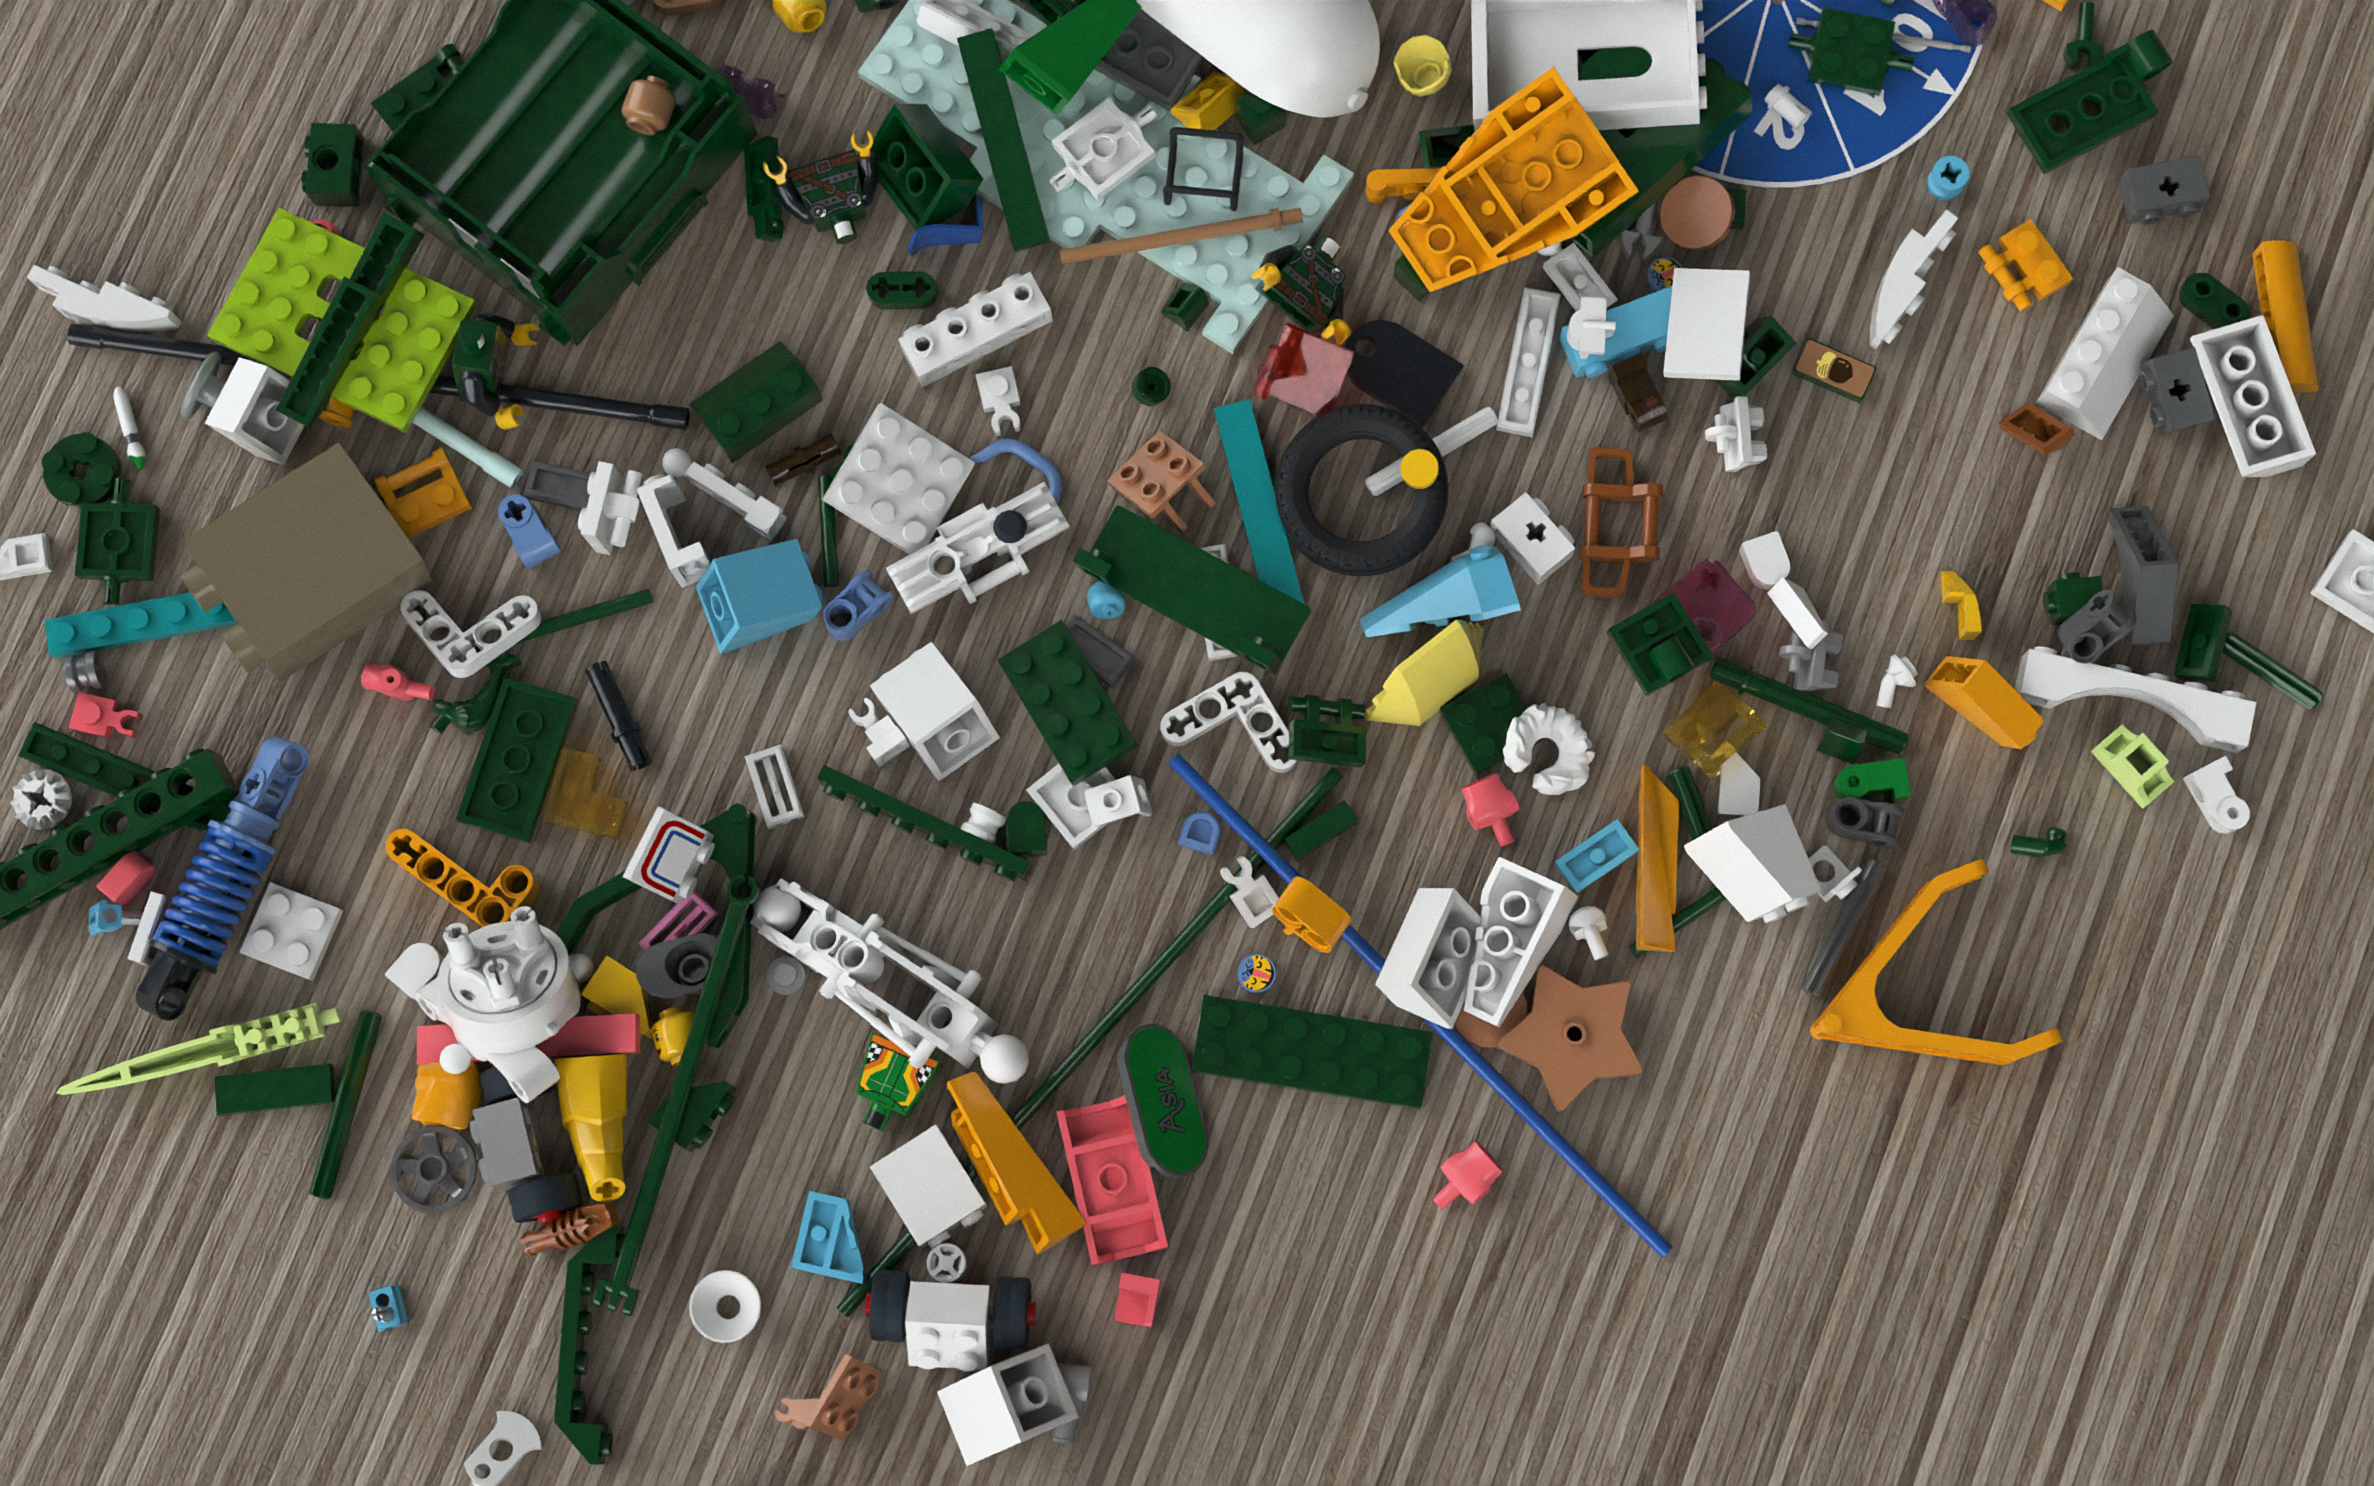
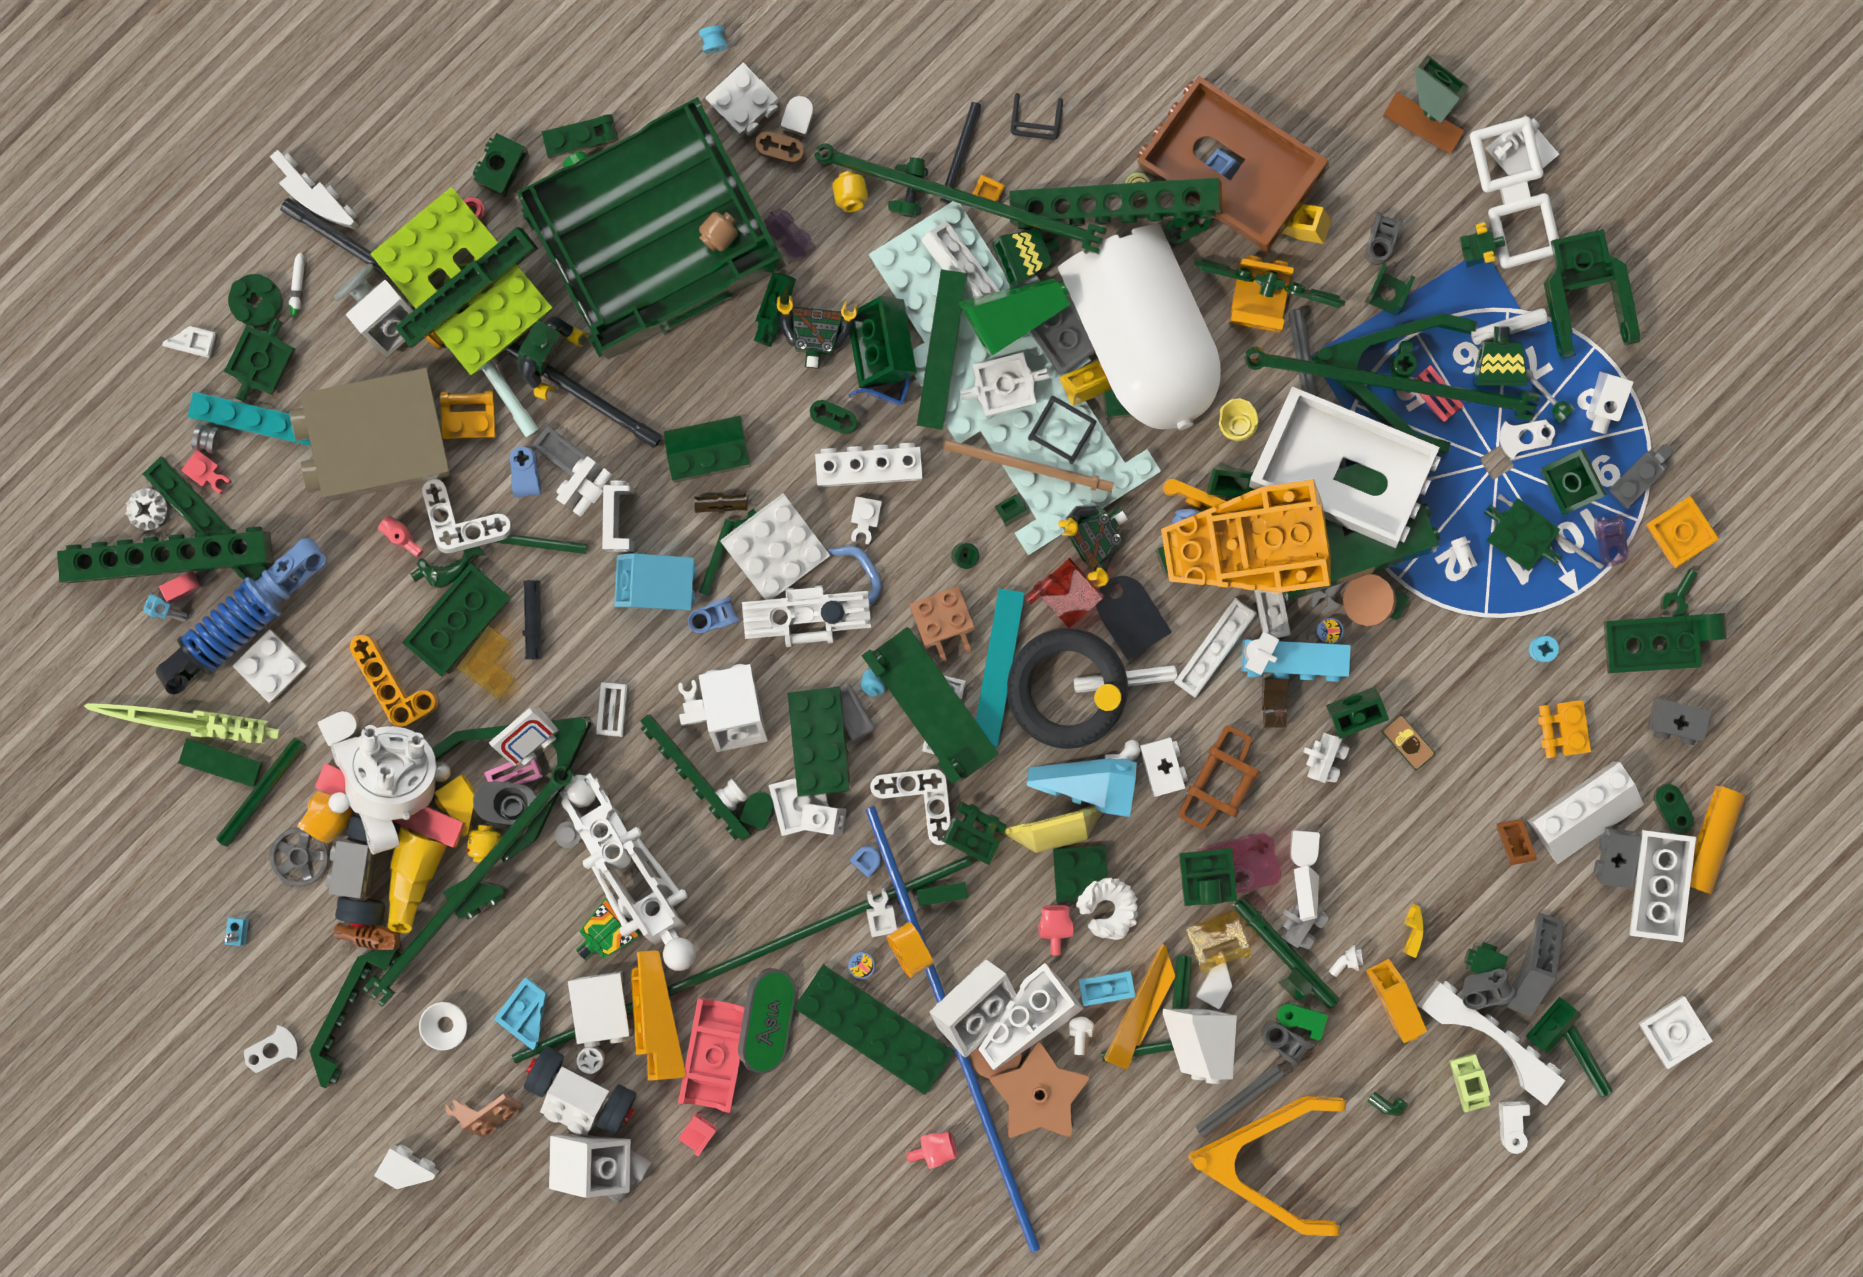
camera: 25 degrees right, 10 degrees up
(141, 951) = (181, 627): white tile -> none
(760, 515) = (678, 530): white plate -> none
(1707, 324) = (1337, 682): white tile -> none
(1843, 879) = (1252, 1073): white bracket -> none
(1903, 279) = (1475, 710): white slope -> none

